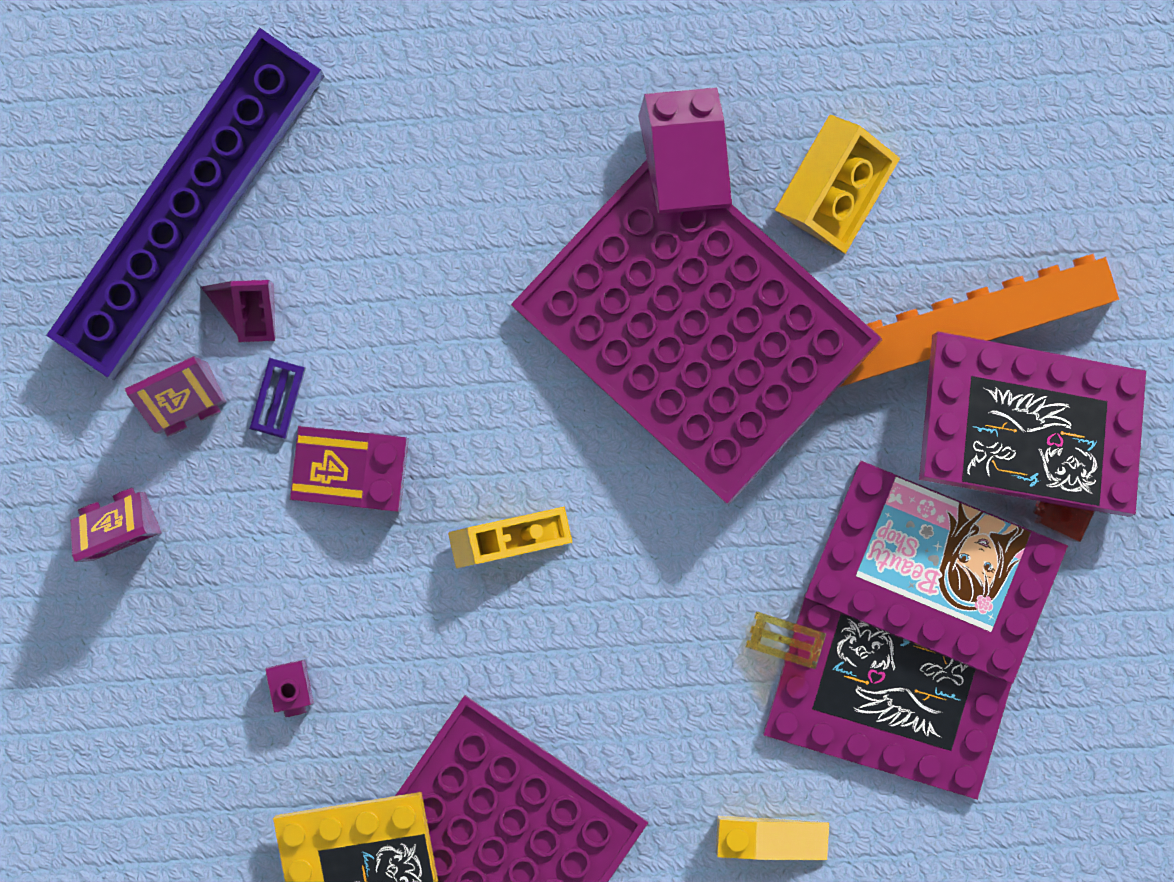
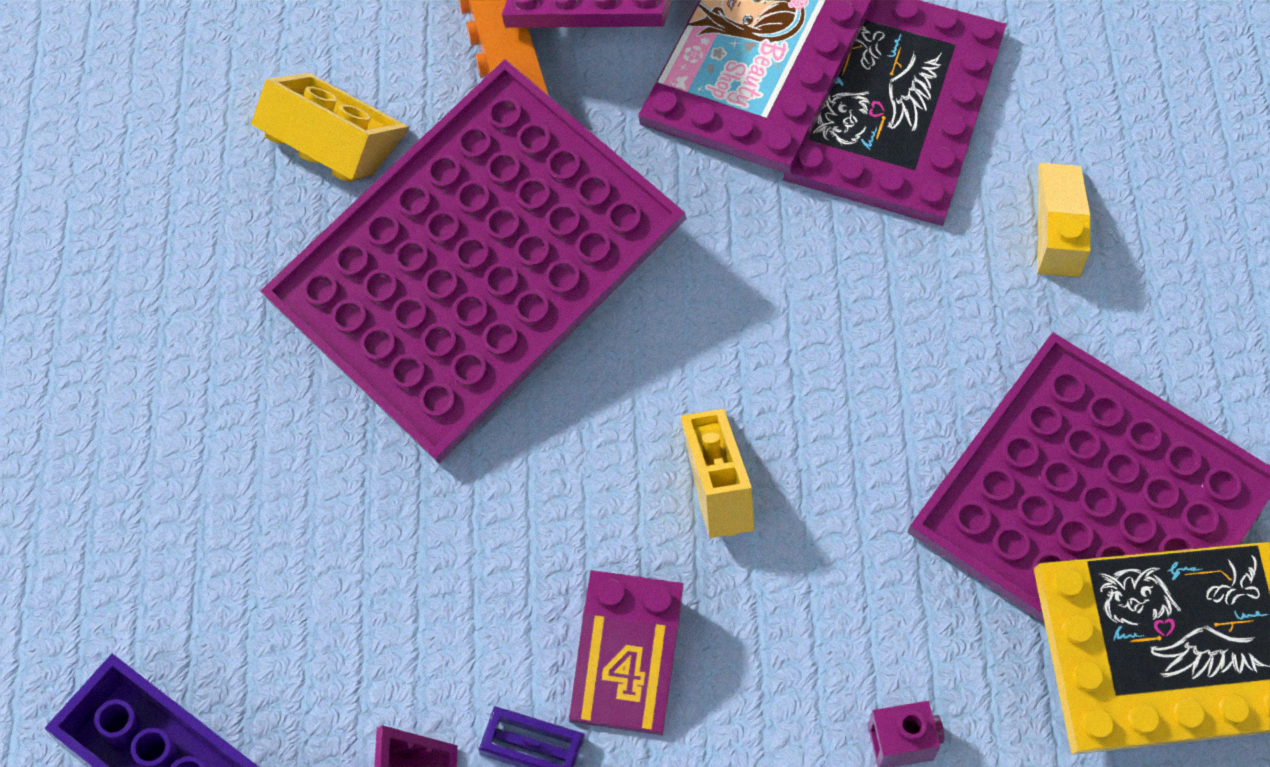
camera: 85 degrees left, 25 degrees down
(686, 150) = (269, 257): magenta slope -> none
(758, 632) = (848, 153): clear yellow tile -> none

